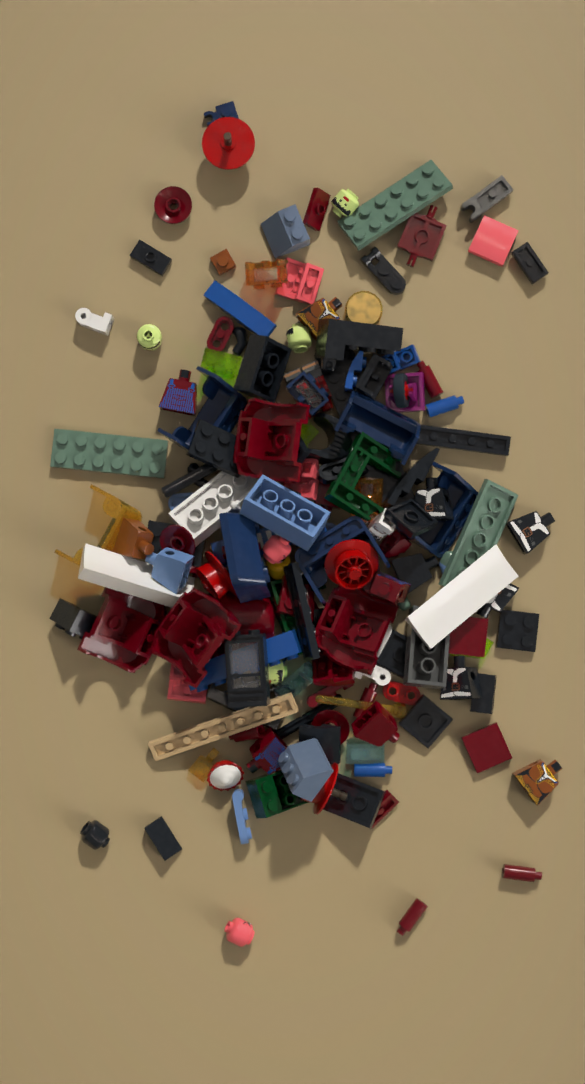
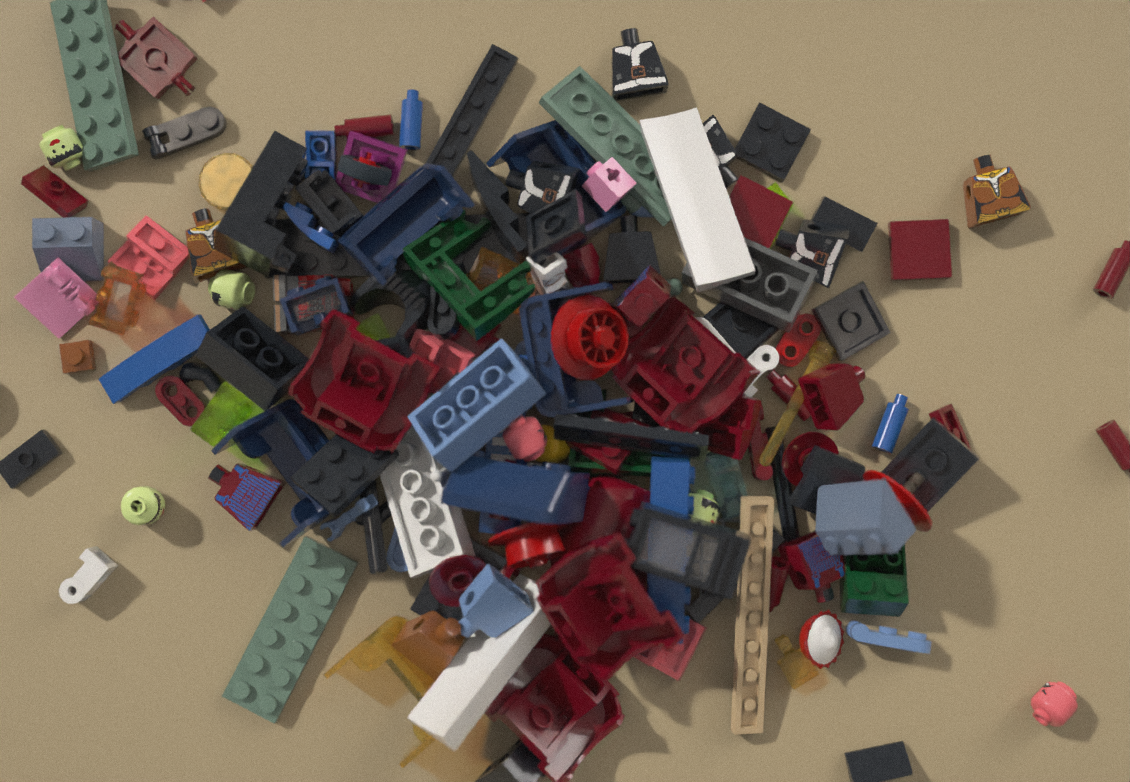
camera: 70 degrees left, 0 degrees up
(181, 457) = (339, 524): none -> medium blue piece
(253, 237) = (58, 298): none -> bright pink hinge
(364, 753) = (864, 427): clear light blue slope -> none
(450, 540) = (608, 183): none -> bright pink brick

